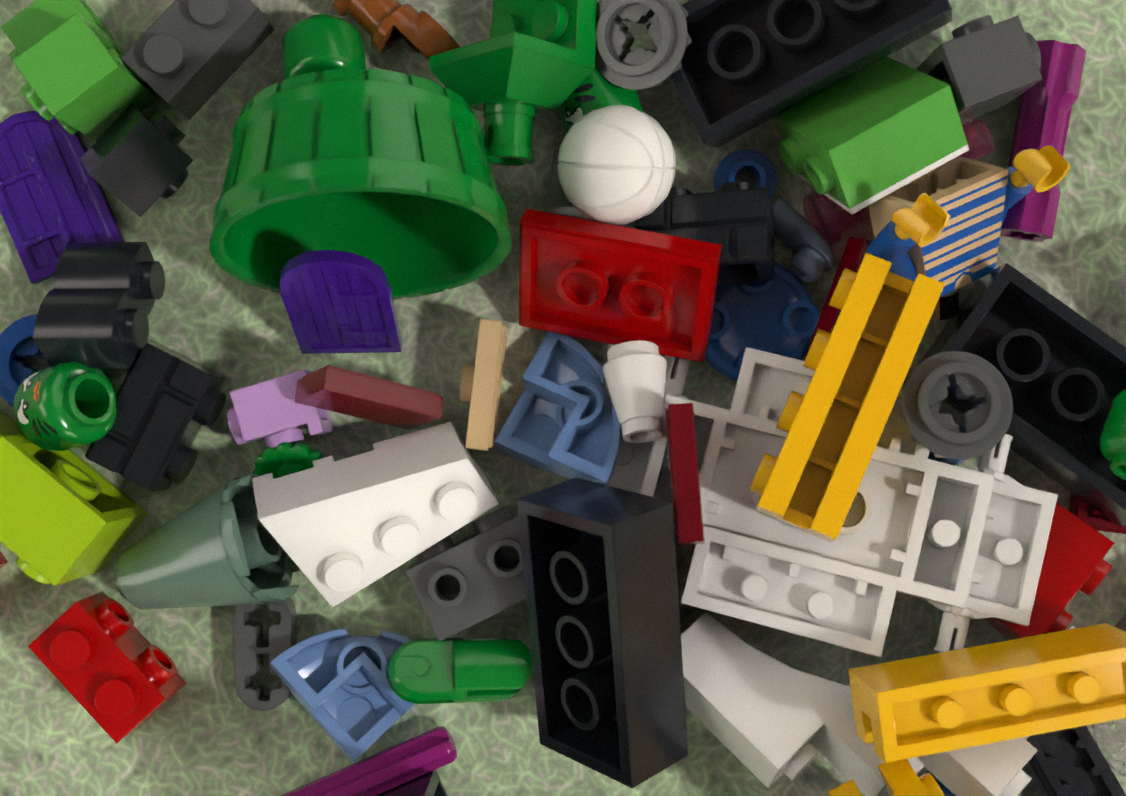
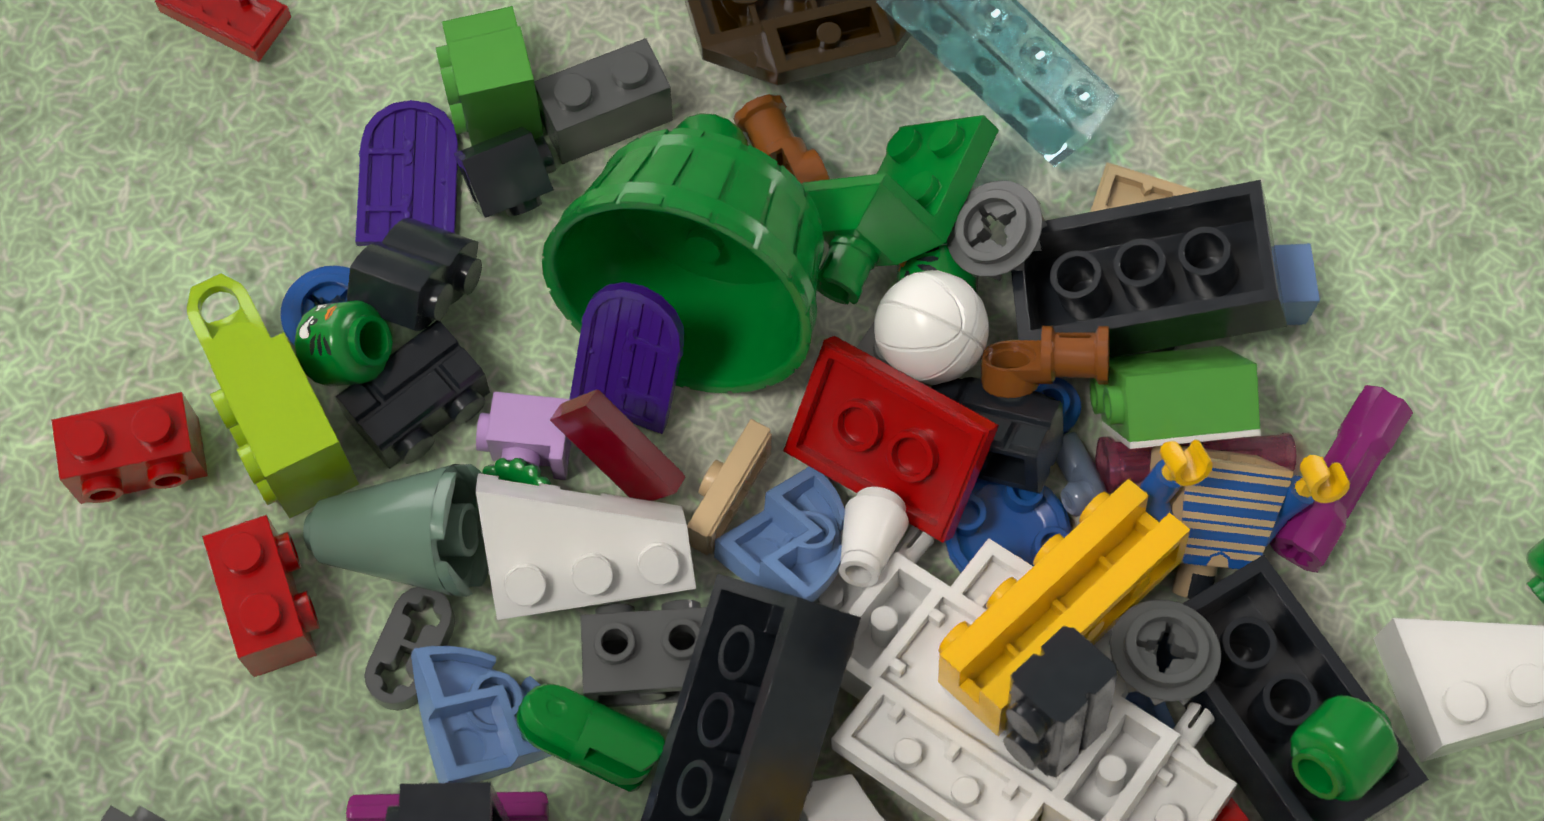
camera: 20 degrees right, 20 degrees down
(684, 474) = (883, 616): dark red tile -> none
(738, 154) = (1019, 366): none -> dark orange connector
(891, 514) = (1058, 702): none -> black brick
(986, 65) = (1301, 381): dark grey brick -> none

